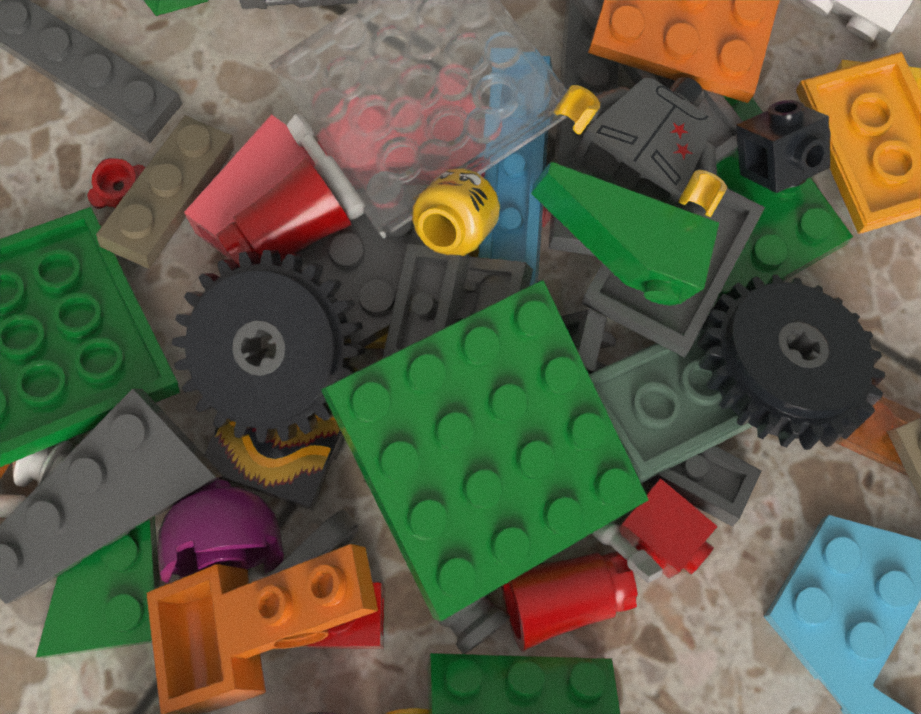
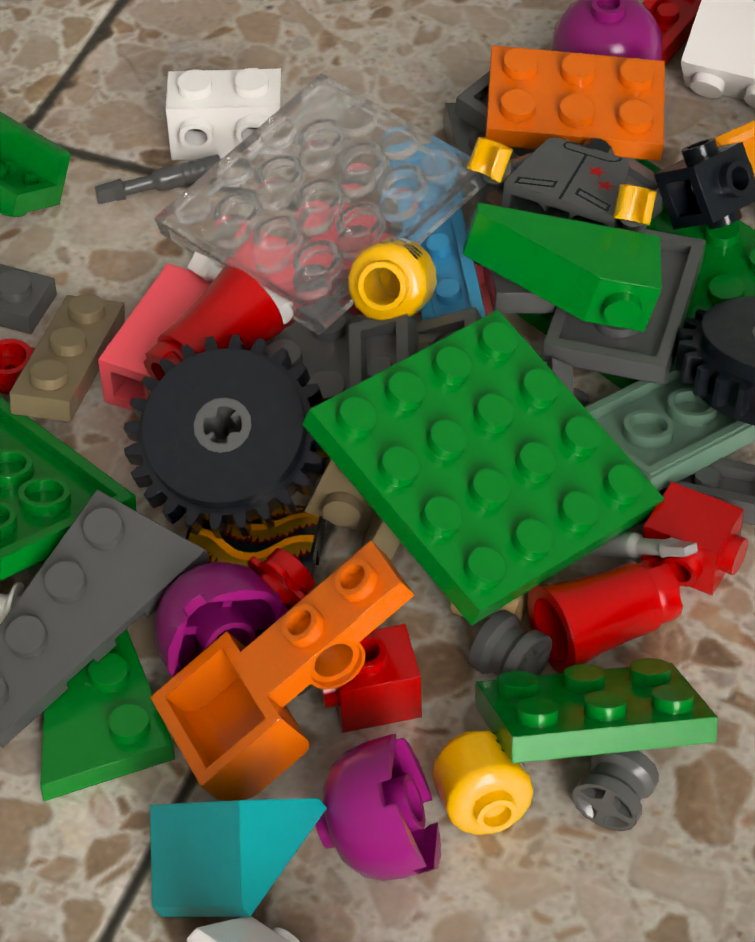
camera: 10 degrees left, 25 degrees down
(283, 513) = (284, 575): none -> red plate

